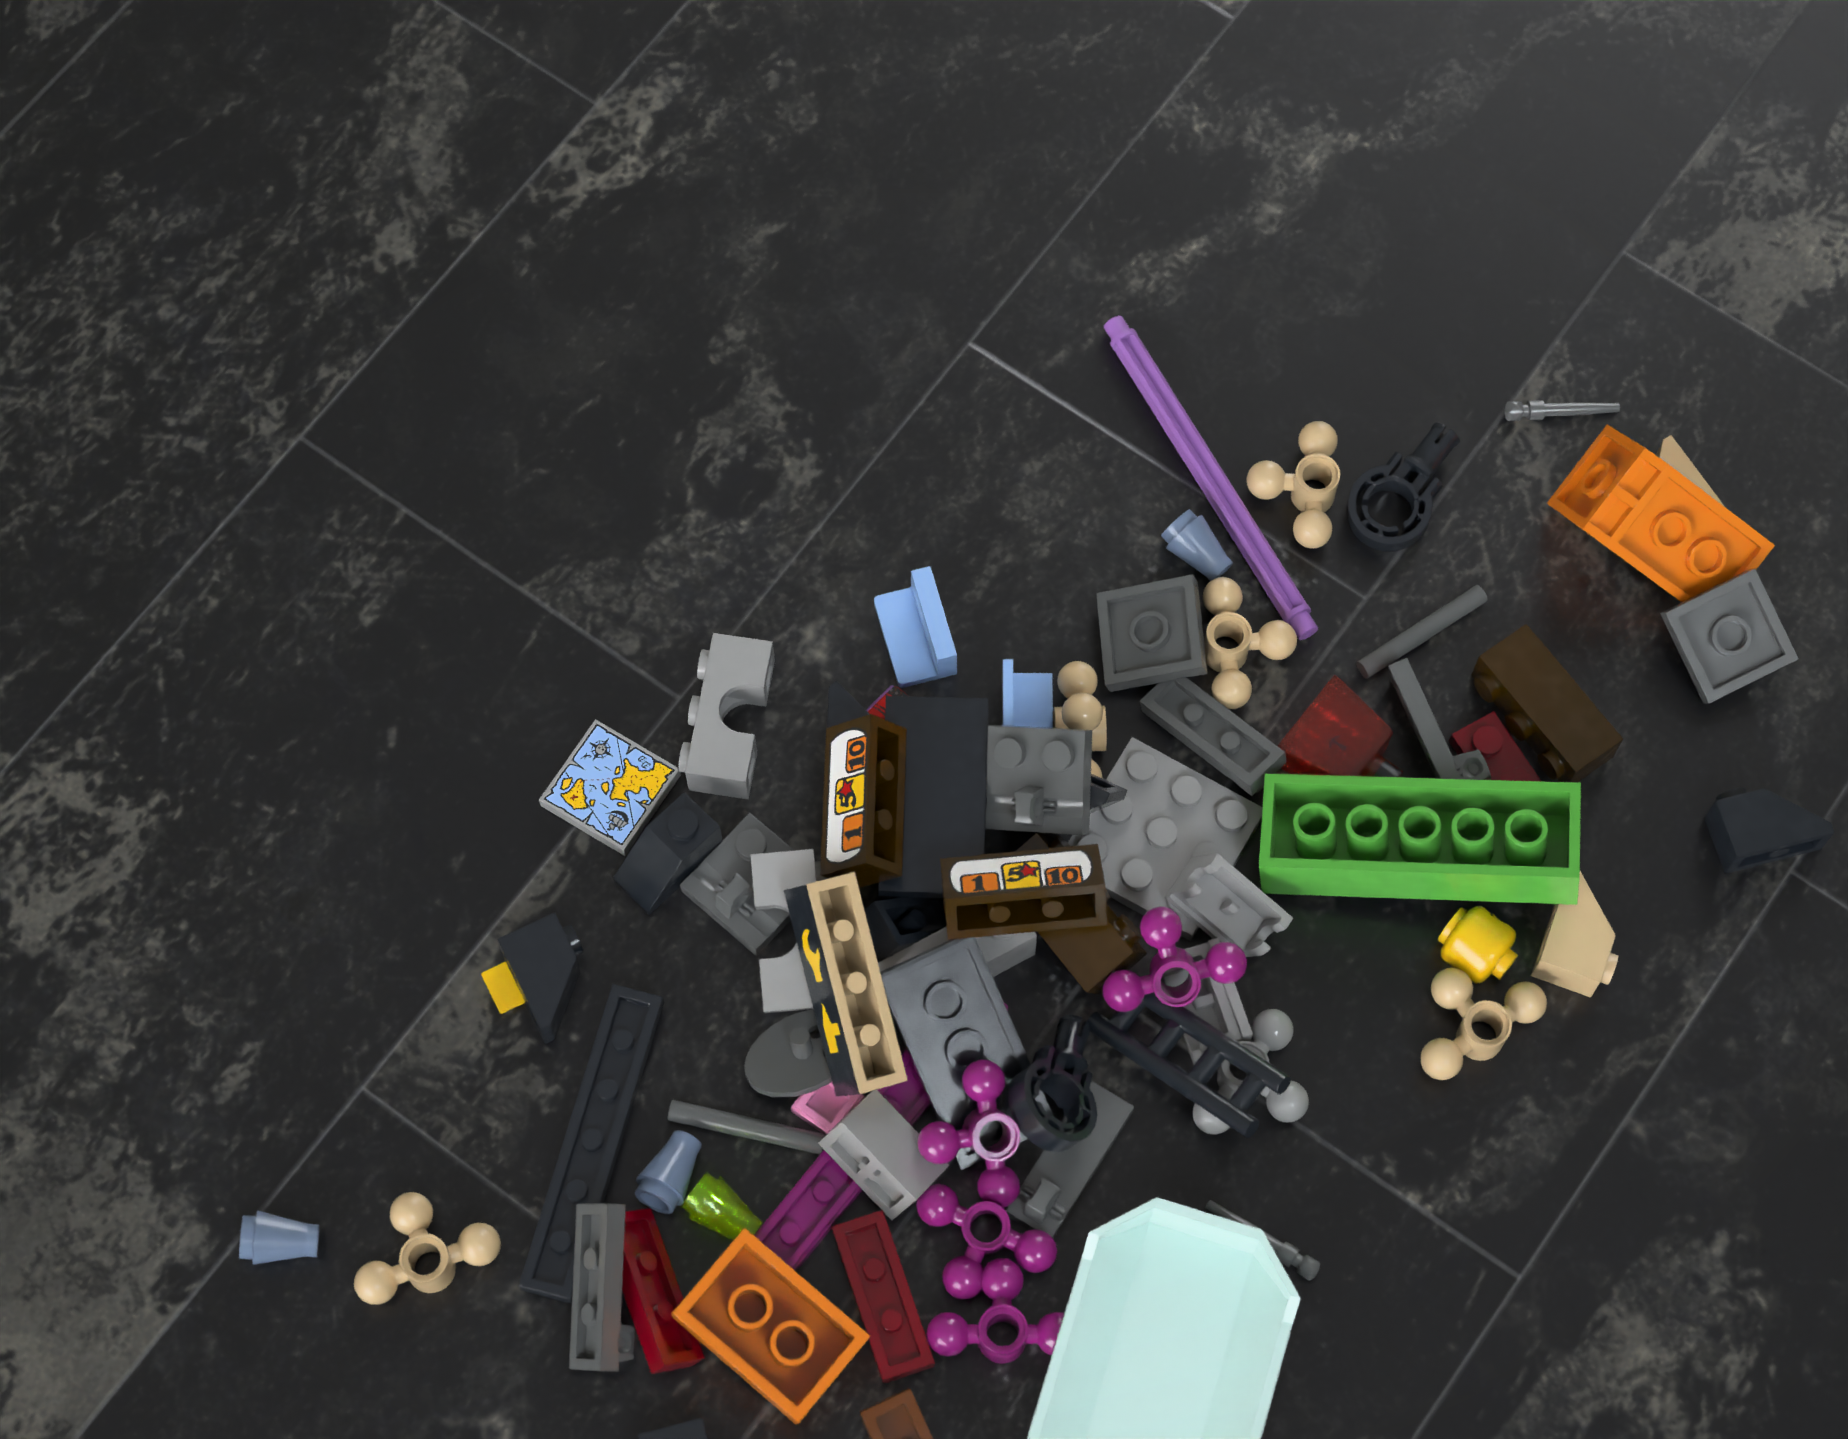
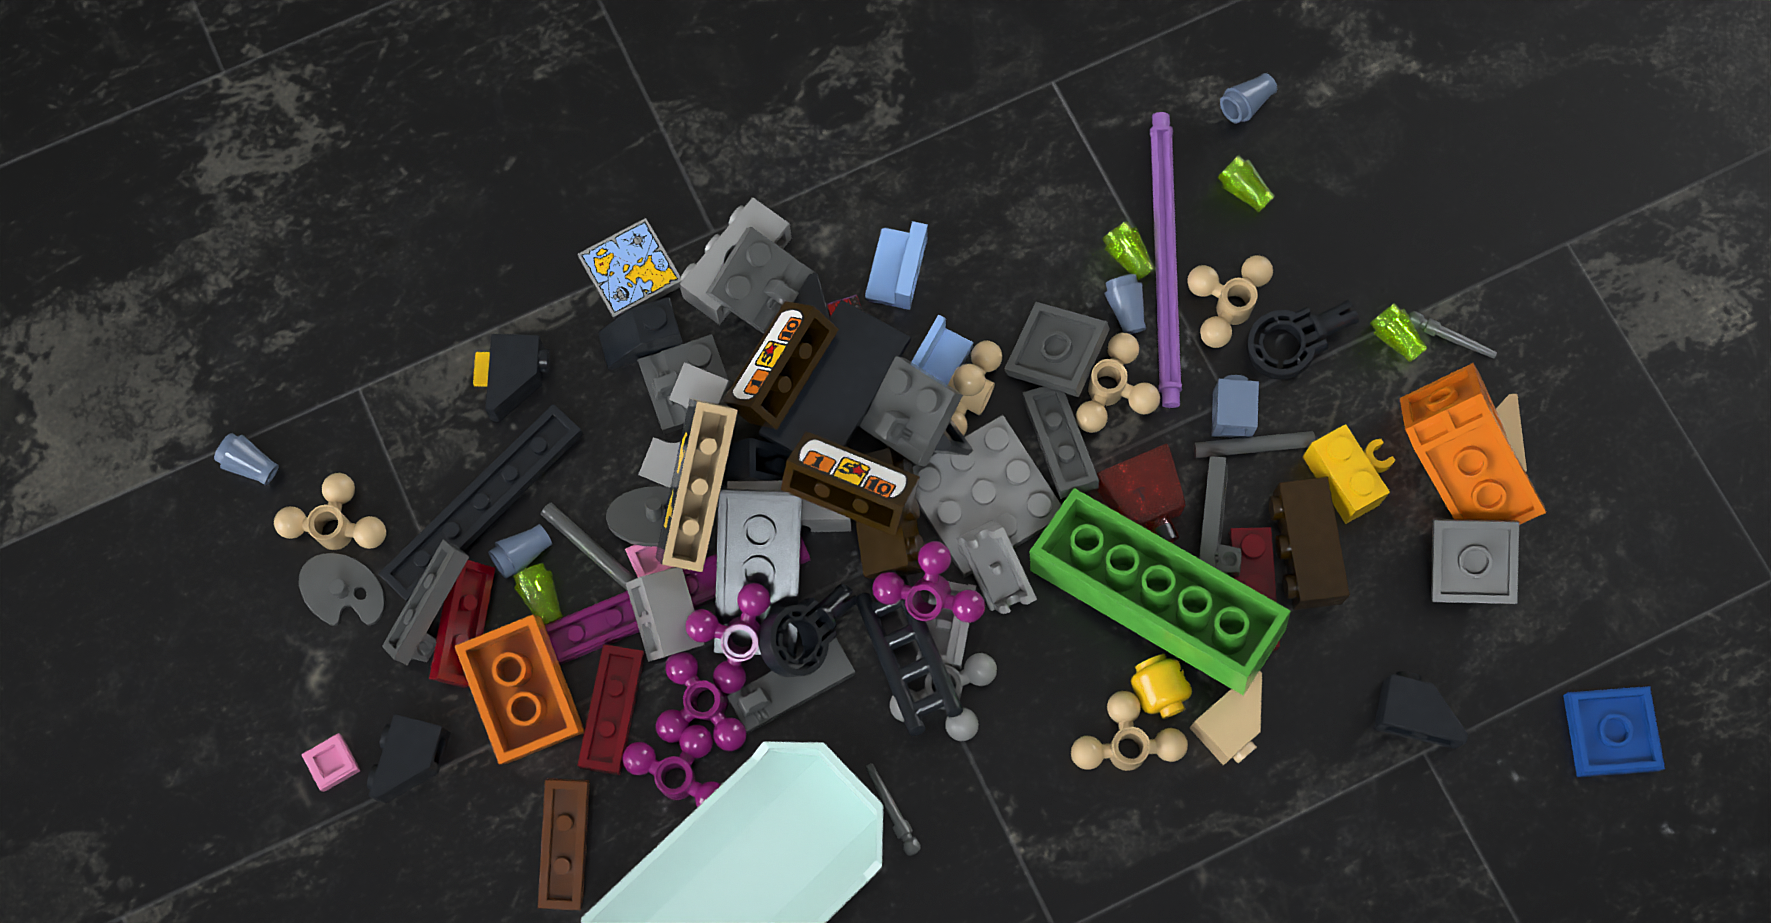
camera: 30 degrees right, 5 degrees up
(462, 1330) = (330, 586): none -> dark grey piece
(777, 724) = (758, 280): none -> dark grey hinge
(1165, 486) = (1129, 250): none -> clear neon green cone
(1196, 259) = (1246, 98): none -> sand blue cone
(1249, 351) = (1245, 183): none -> clear neon green cone
(1381, 600) = (1235, 407): none -> sand blue brick
(1505, 432) = (1398, 332): none -> clear neon green cone
(1545, 604) = (1350, 472): none -> yellow brick

